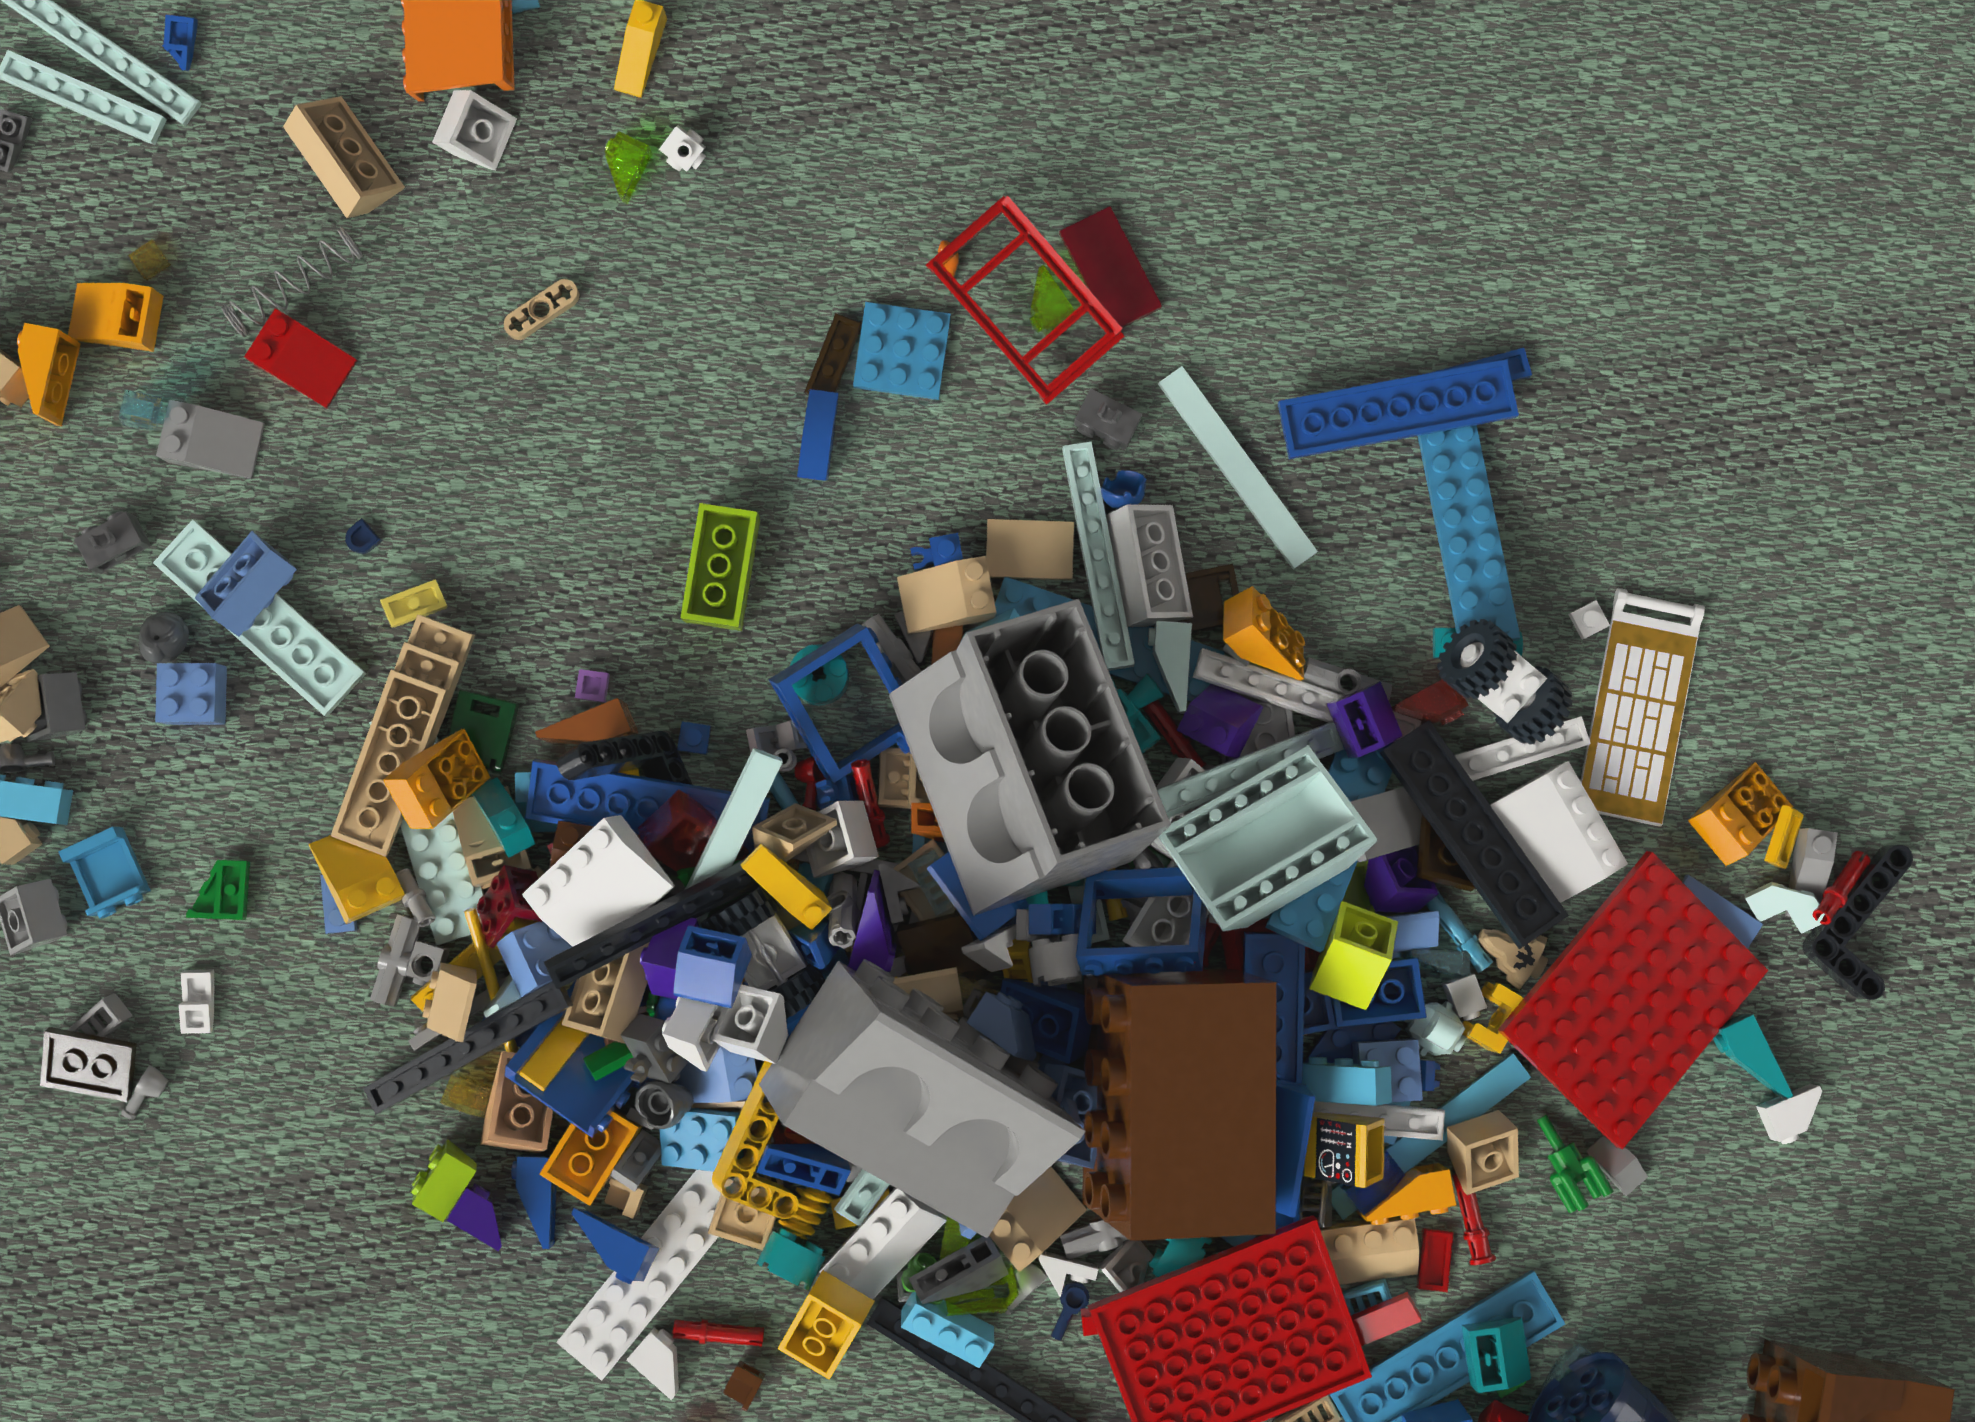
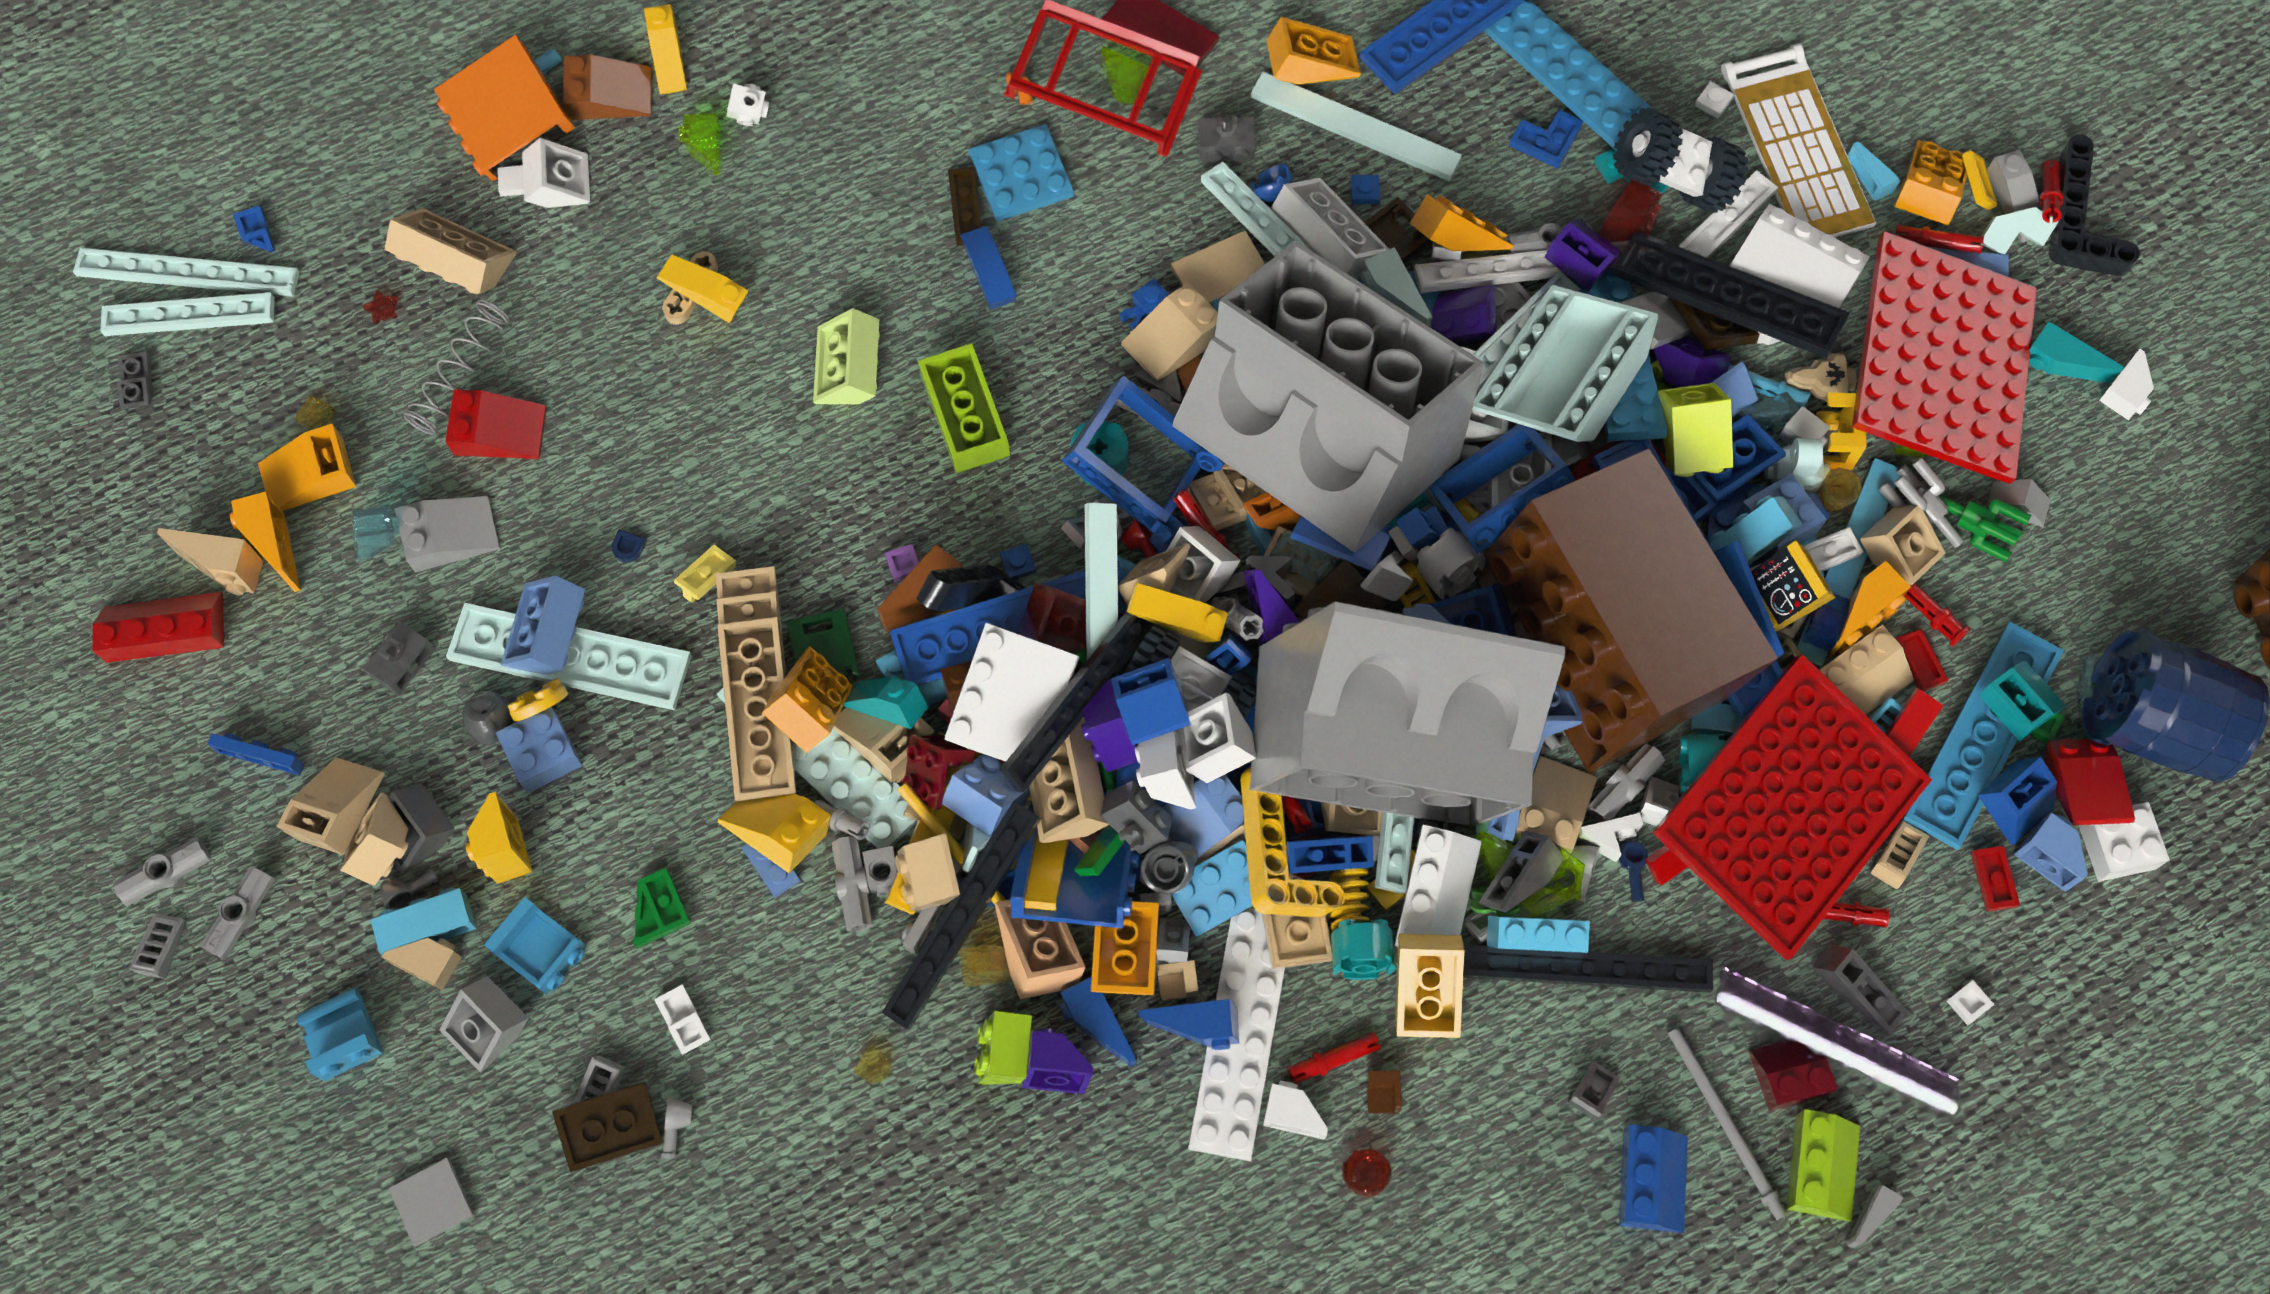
camera: 25 degrees left, 15 degrees down
(110, 767) = (497, 841): none -> yellow slope
(208, 651) = (532, 703): none -> yellow tile
(260, 189) = (385, 313): none -> clear red plate
(335, 1128) = (873, 1066): none -> clear yellow tile
(432, 110) = (510, 180): none -> white tile
(548, 319) = (704, 287): none -> yellow slope
(564, 60) = (605, 88): none -> slope
(643, 460) = (846, 359): none -> yellowish green slope
(1209, 537) = (1365, 189): none -> blue plate
(1236, 374) = (1310, 53): none -> light orange slope
(1403, 585) = (1547, 145): none -> blue plate
(1460, 1070) = (1839, 489): none -> clear yellow piece
(1528, 1118) = (1926, 497): none -> light grey plant
(1688, 775) = (1872, 172): none -> medium azure slope
(1706, 874) = (1941, 239): none -> red pin

